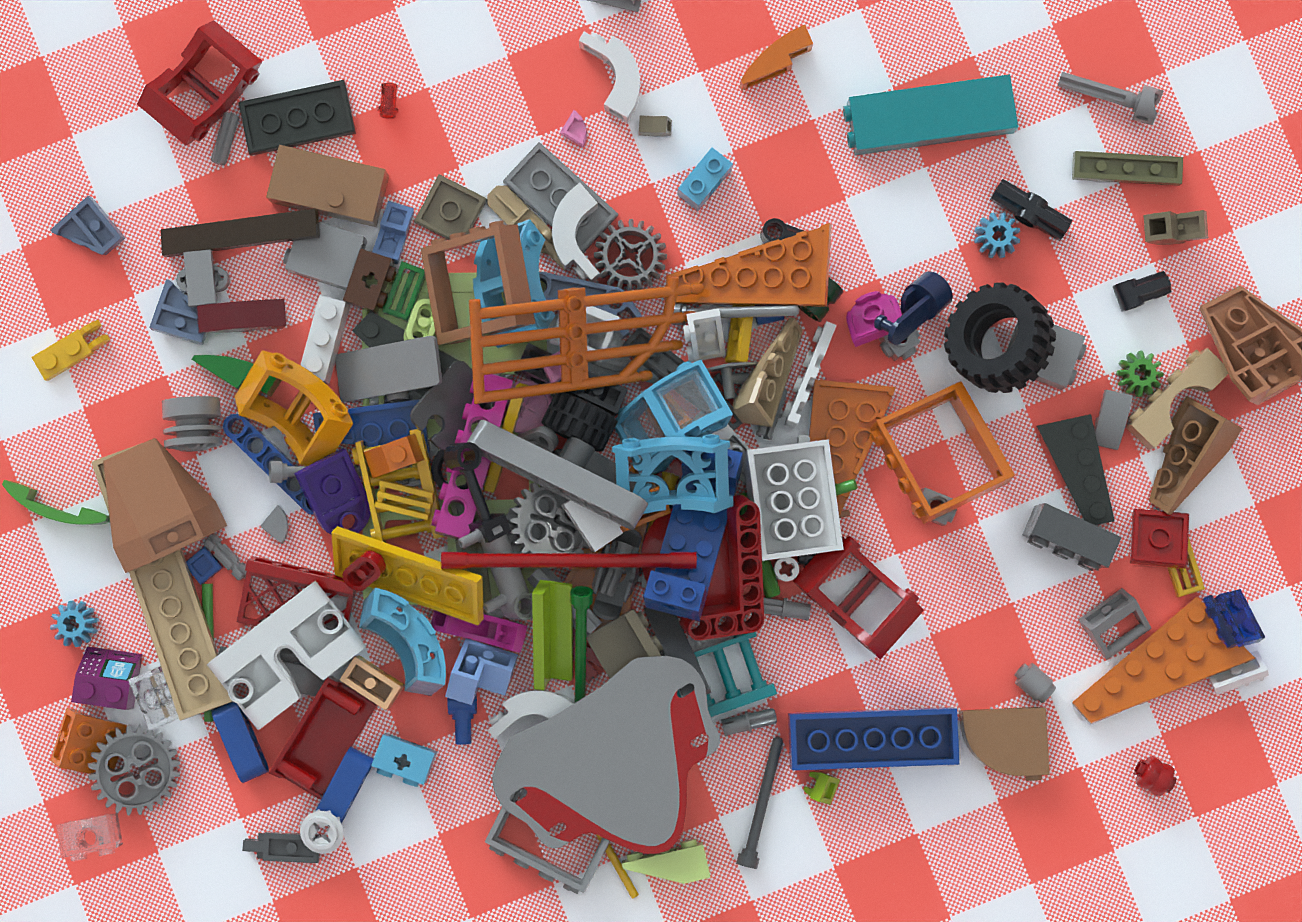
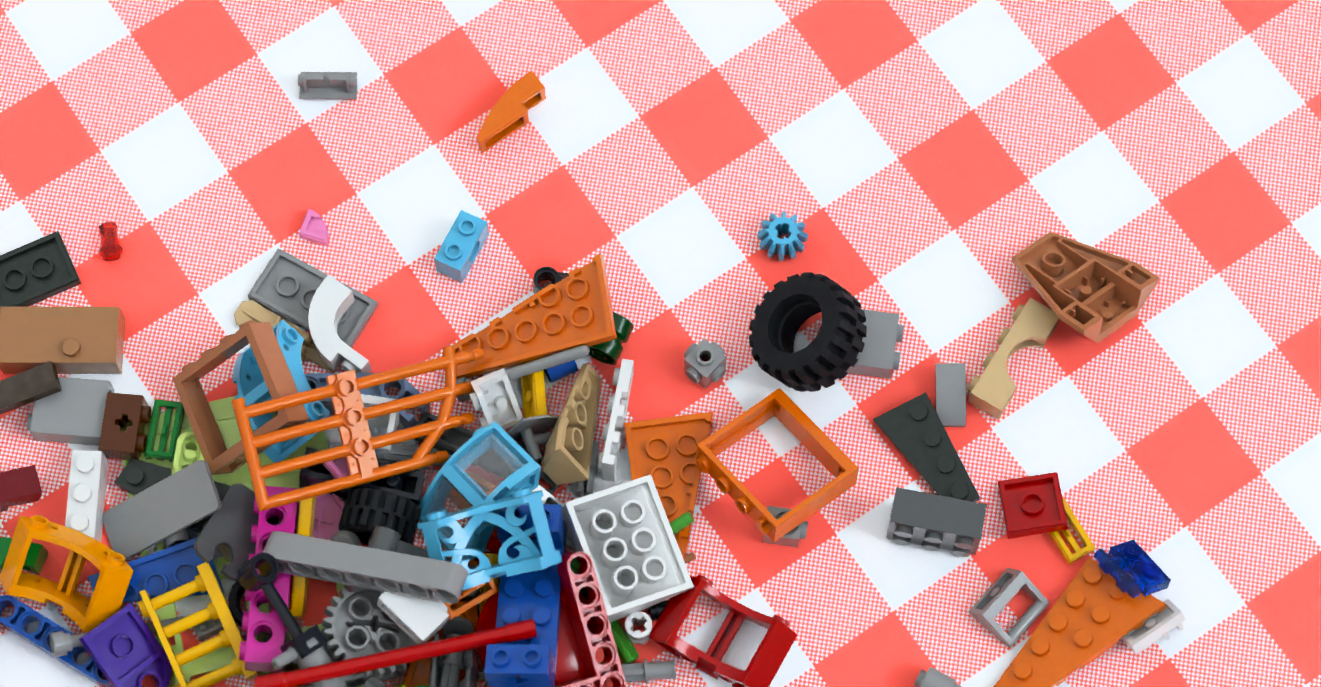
camera: 10 degrees left, 15 degrees down
(381, 494) = (179, 641): yellow tile -> none
(393, 231) = (141, 370): medium blue slope -> none
(393, 455) = (183, 594): orange slope -> none
(450, 208) = (194, 332): dark tan tile -> none
(626, 90) = (359, 178): white arch -> none
(641, 247) = (414, 322): light grey gear -> none
(655, 126) = (397, 206): dark tan piece -> none
(863, 313) = (672, 344): dark pink tile -> none
(919, 303) = (715, 319): dark blue piece -> none
(931, 115) = (684, 132): teal brick -> none
(1031, 210) = (811, 203): black piece -> none
(1127, 168) = (901, 140): olive plate -> none
(1136, 292) = (941, 262): black piece -> none
(1142, 104) = (901, 73): light grey piece -> none
(1145, 366) = (974, 335): bright green gear -> none
(1174, 228) = (964, 189): dark tan brick -> none
(1193, 450) = (1046, 401): medium nougat wedge -> none

